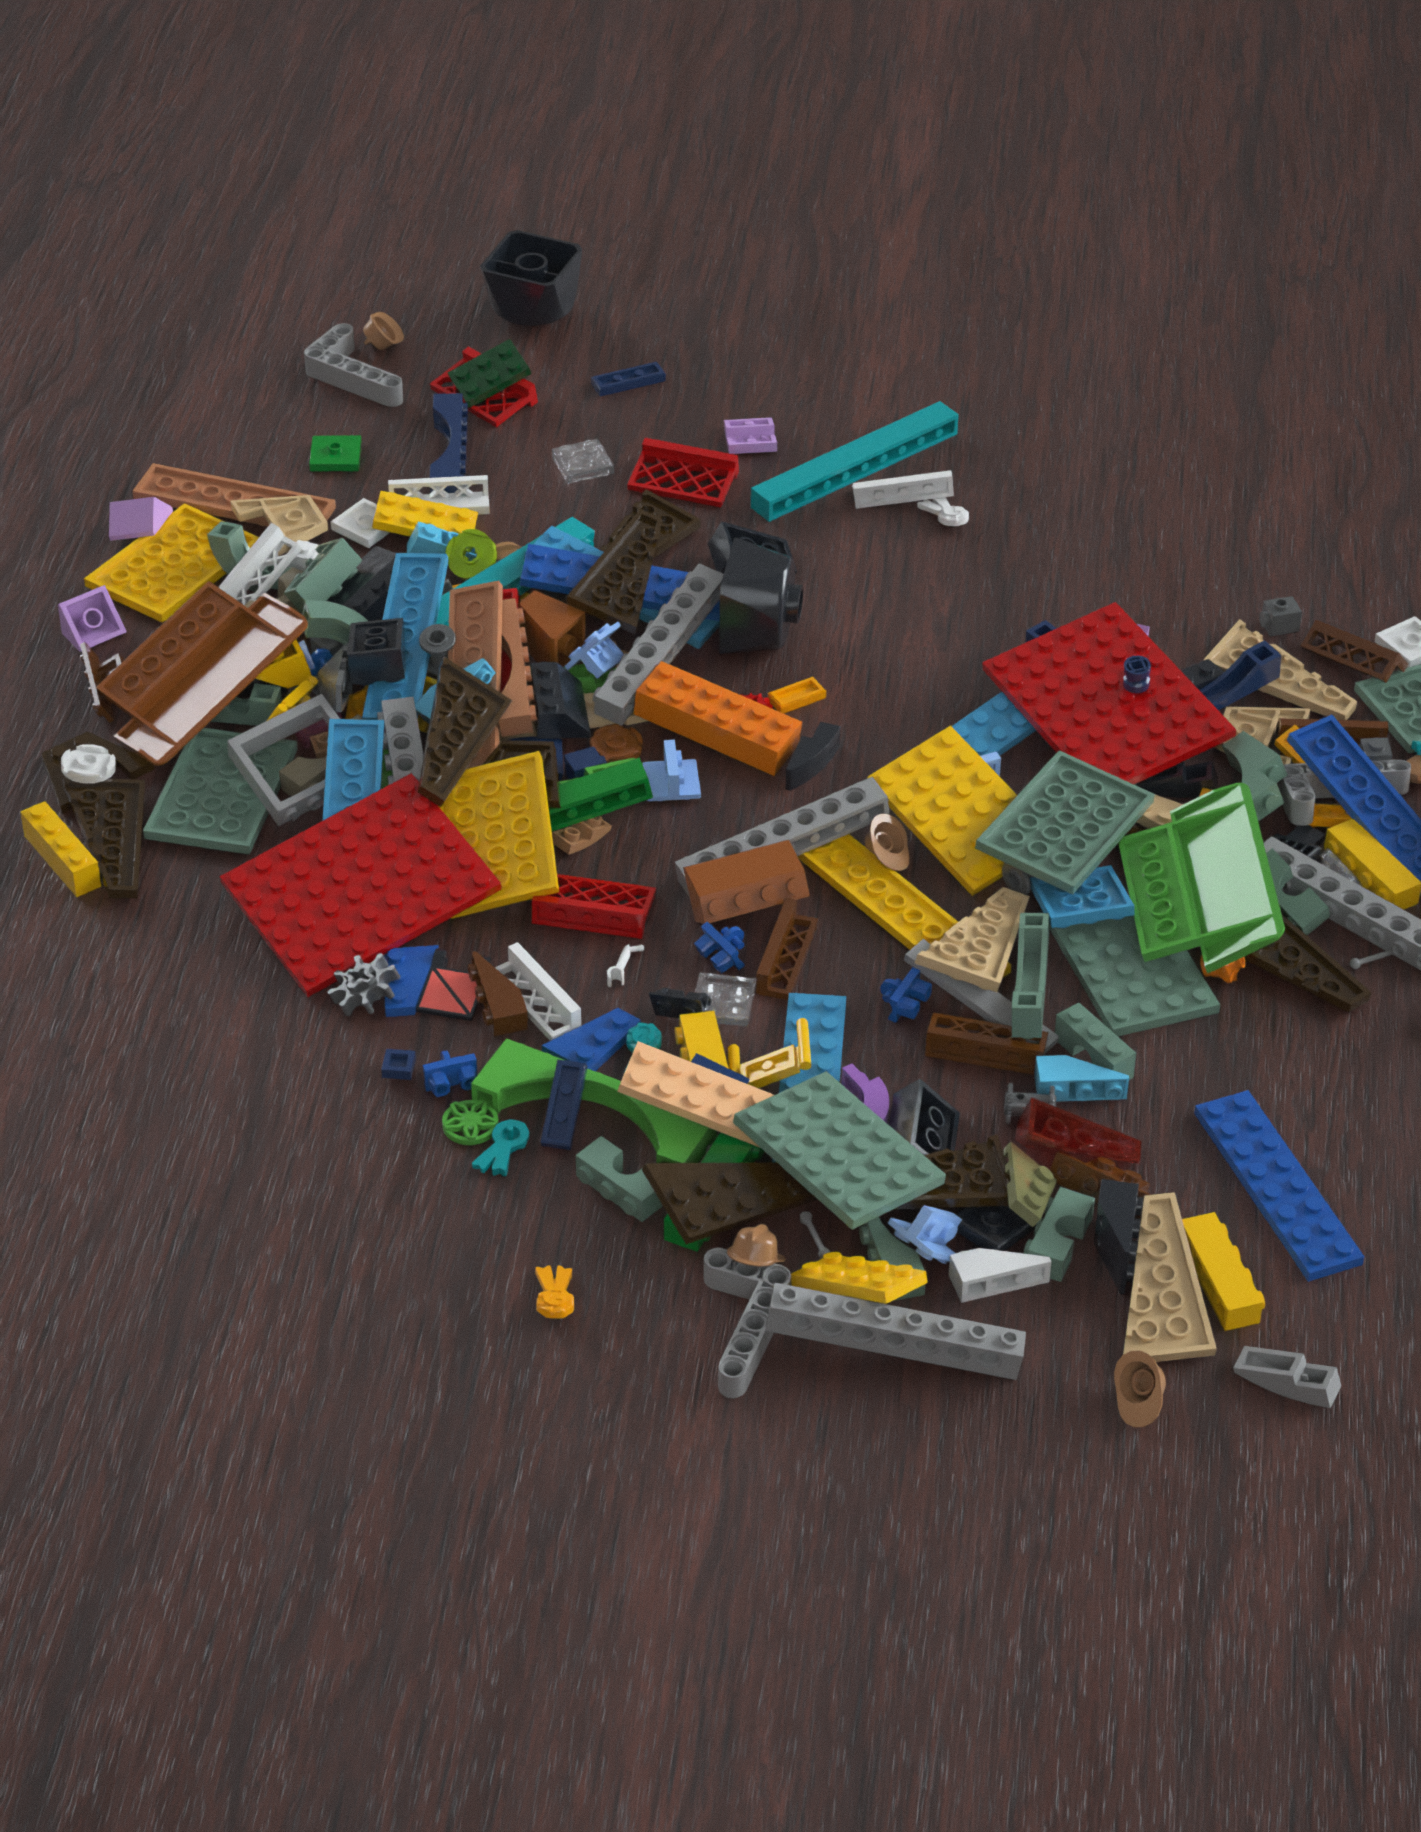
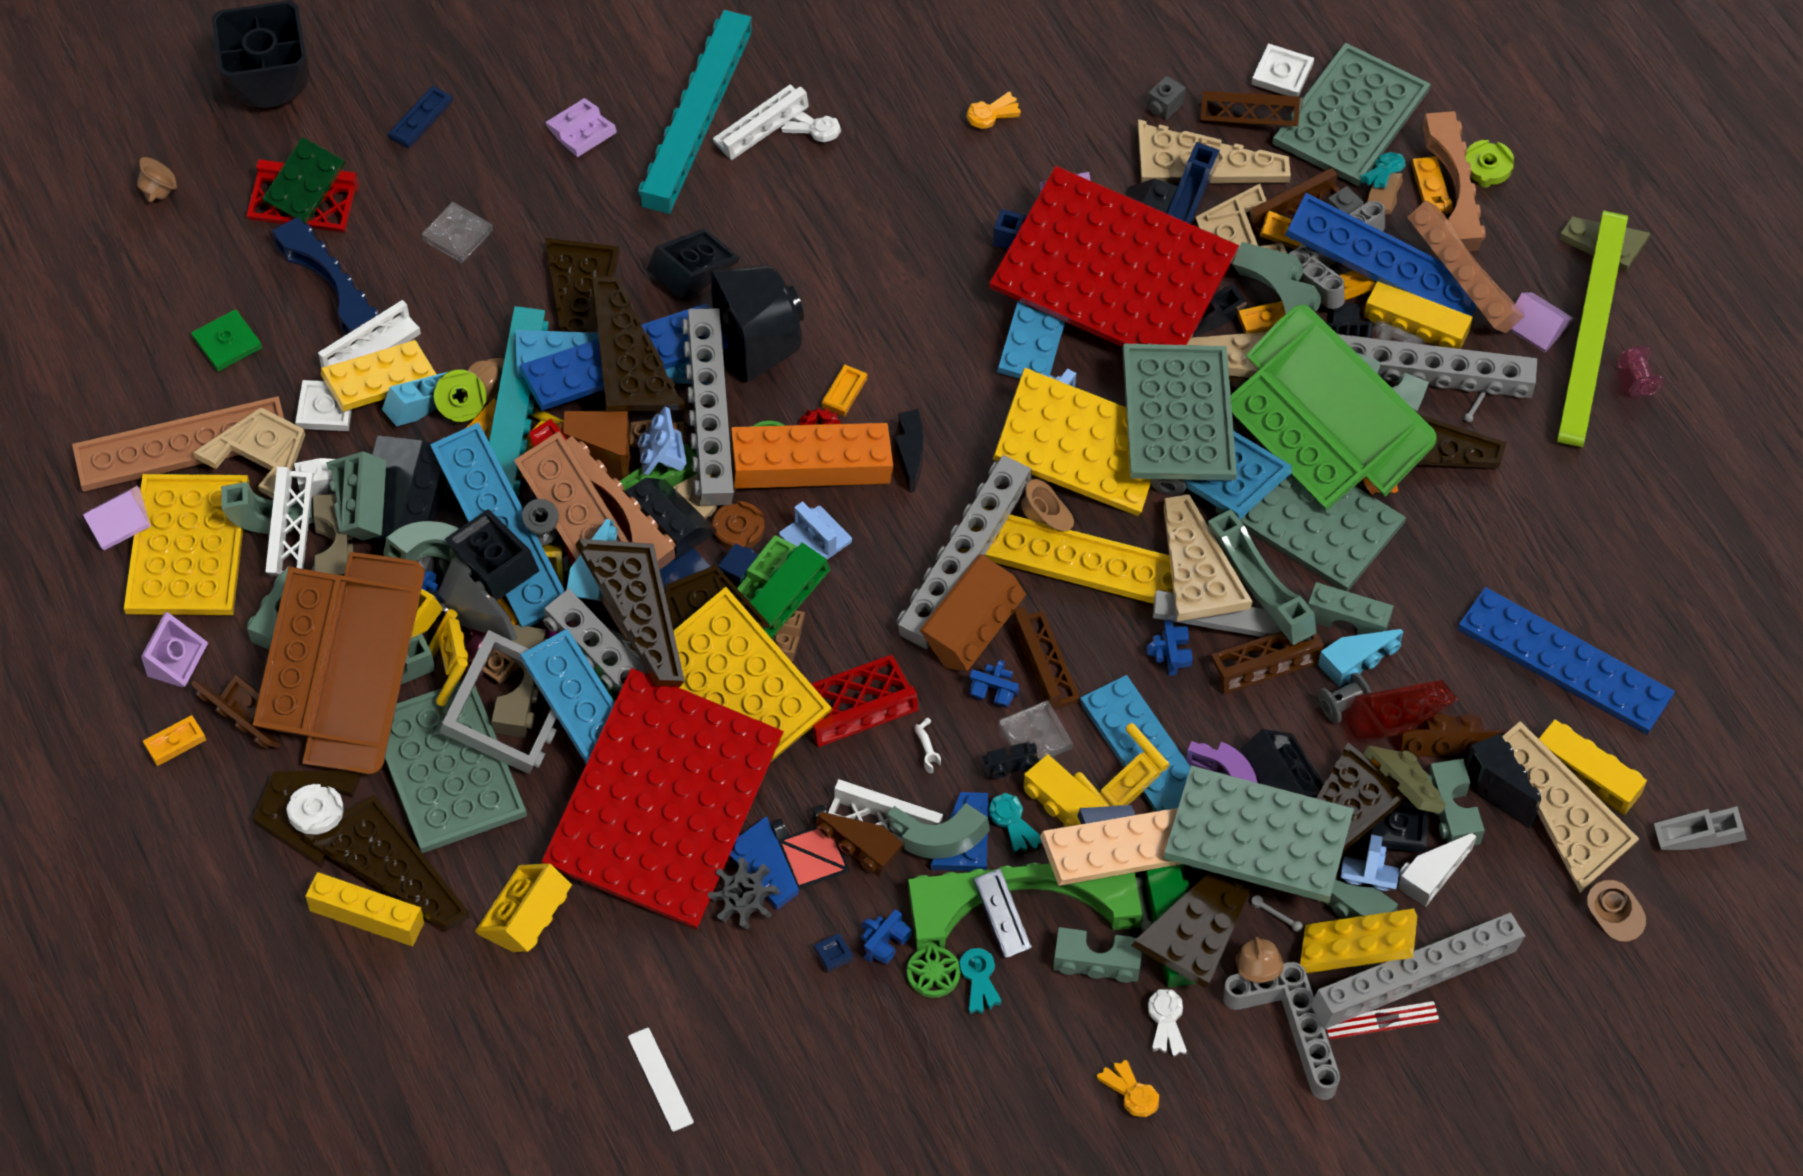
camera: 35 degrees left, 15 degrees up
(35, 677) = (174, 740): none -> light orange plate
(174, 1082) = (660, 1079): none -> white sticker
(184, 910) = (524, 907): none -> yellow slope
(328, 362) = (161, 244): light grey beam -> none
(567, 1026) = (940, 840): none -> sand green arch
(641, 1249) = (1165, 1008): none -> white piece
(688, 459) = (555, 182): red fence -> none
(836, 1364) = (1386, 1020): none -> sticker
(1104, 563) = (984, 115): none -> light orange piece
(1136, 674) = (1133, 235): dark blue wheel -> none

